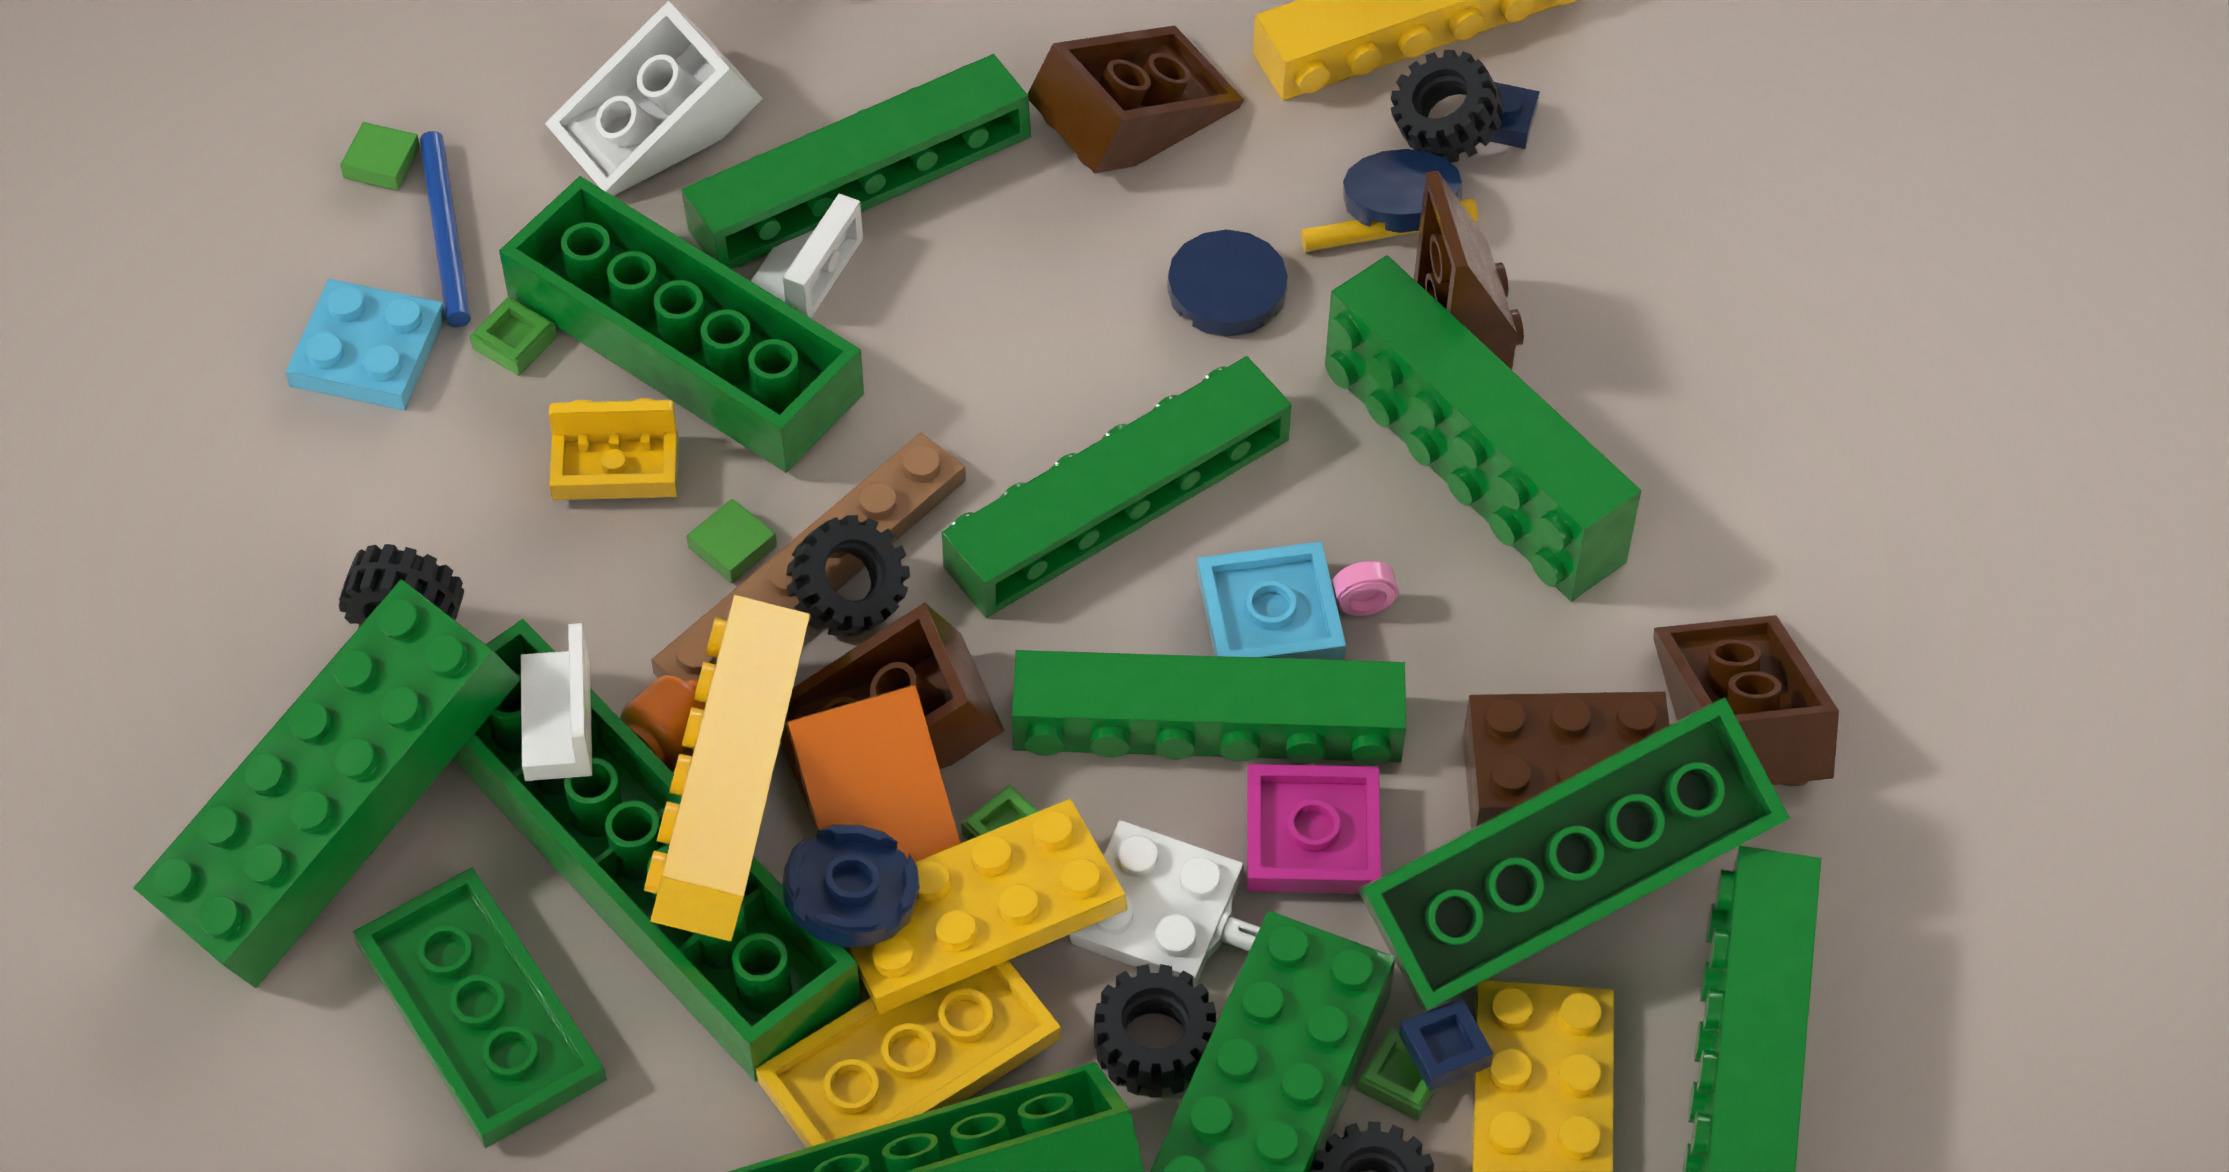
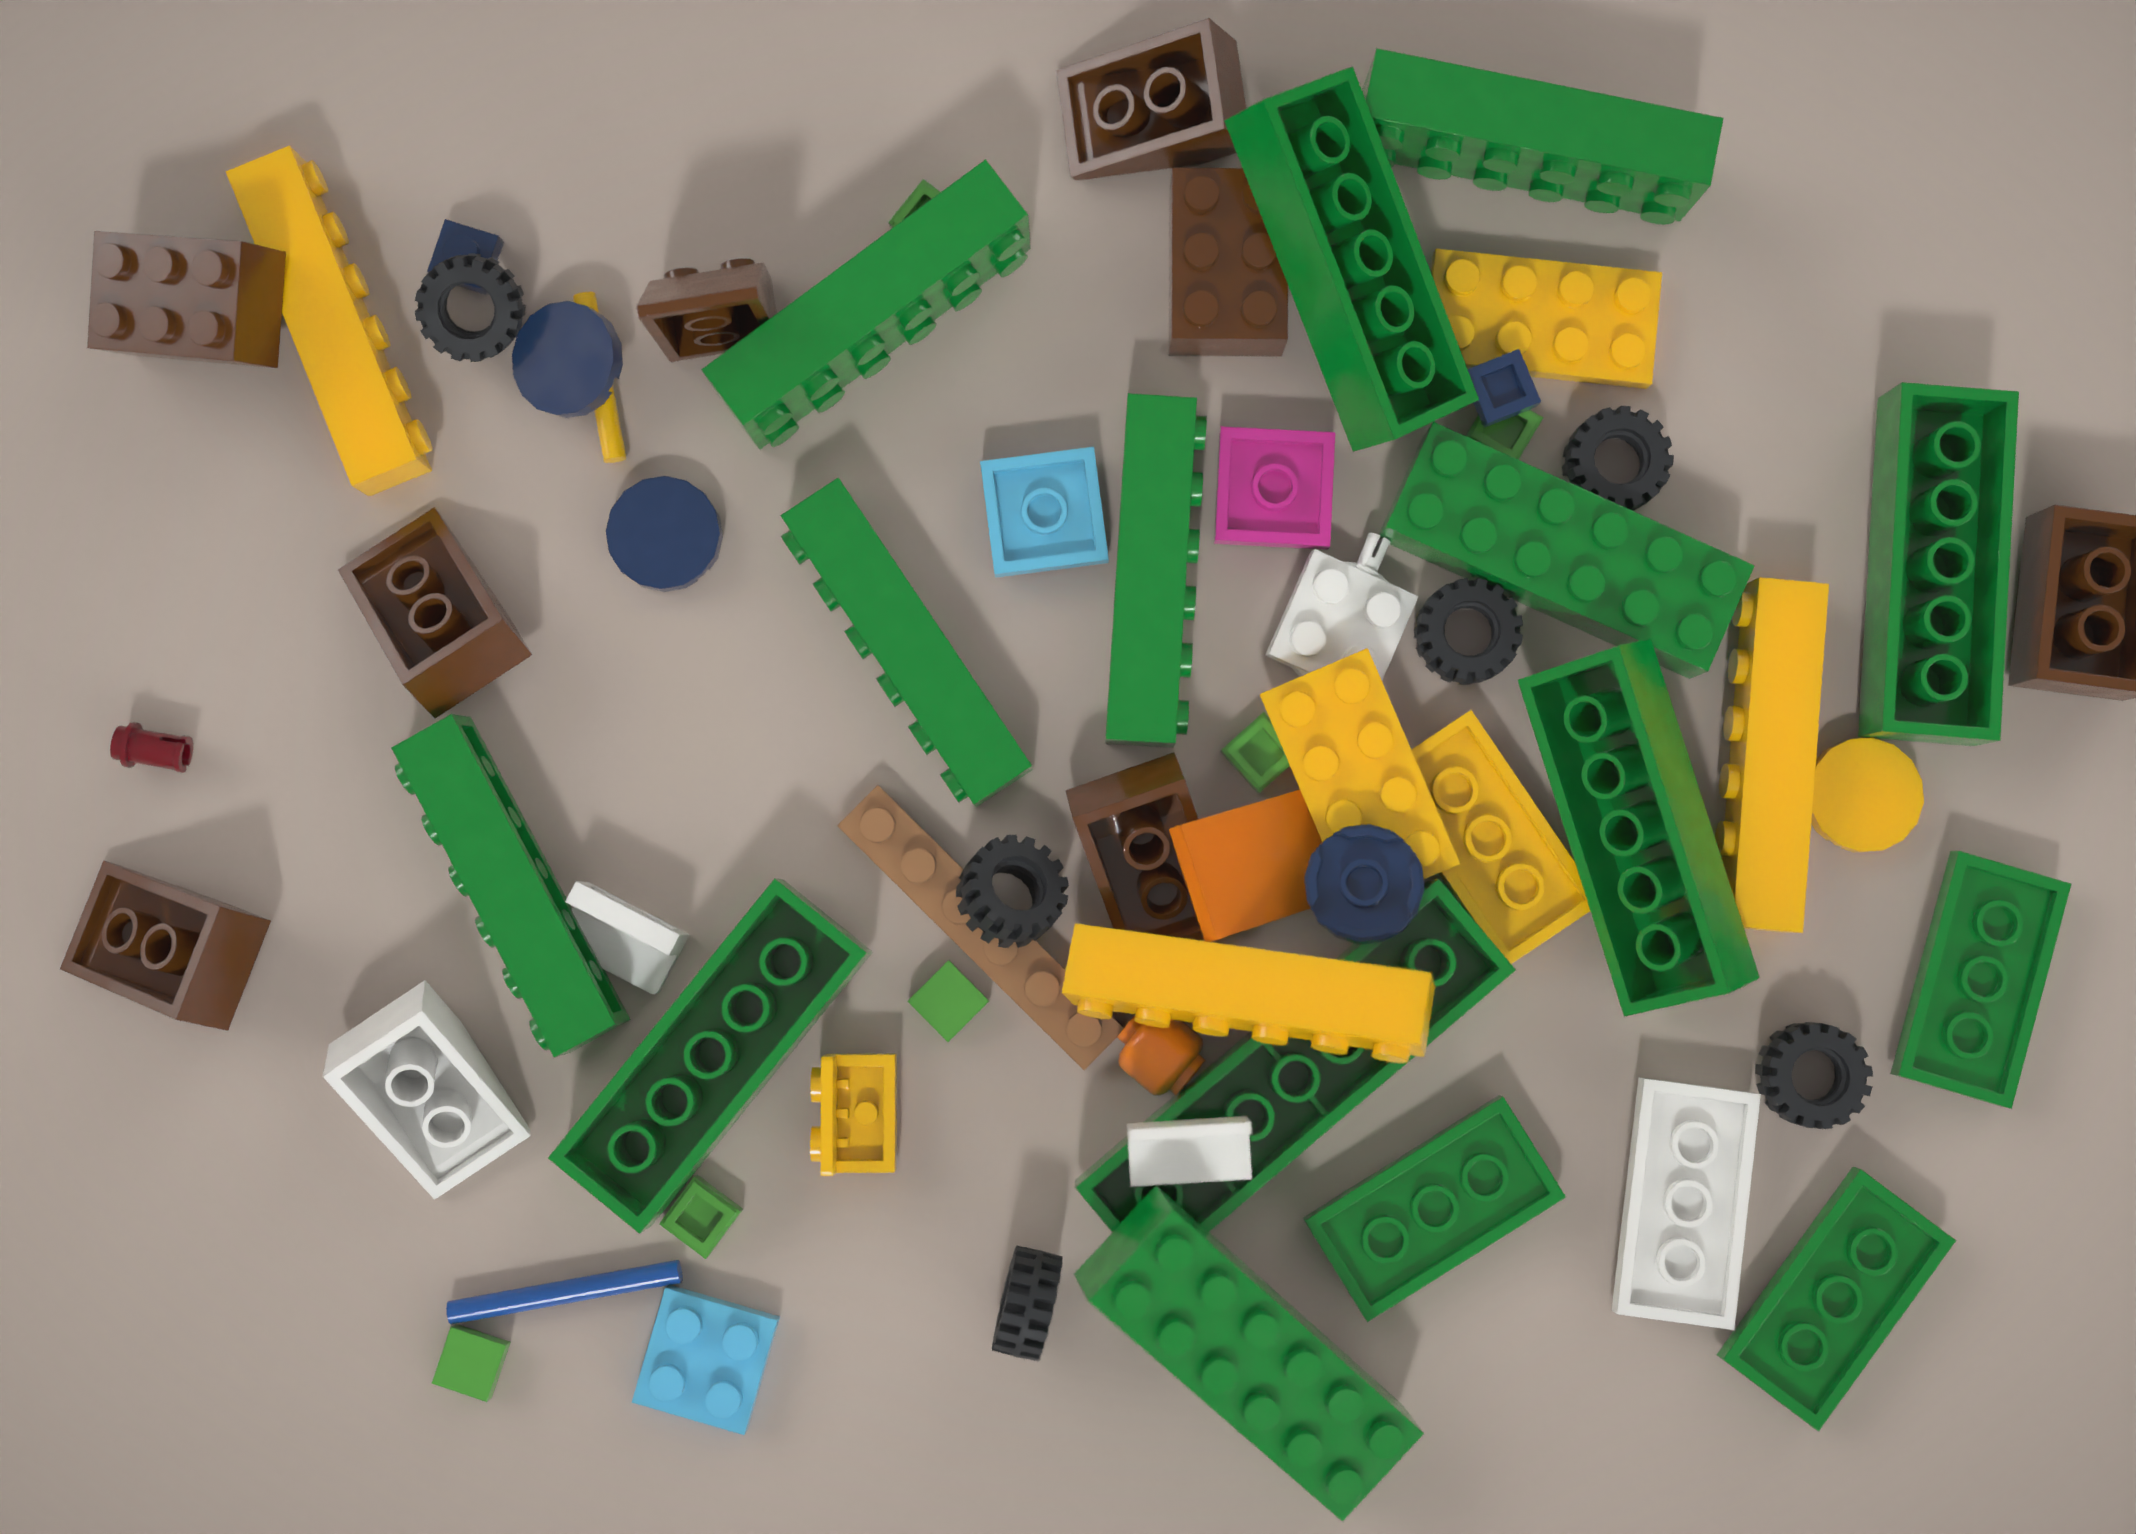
camera: 85 degrees left, 30 degrees up
(1365, 588) = (1029, 426): bright pink tile -> none

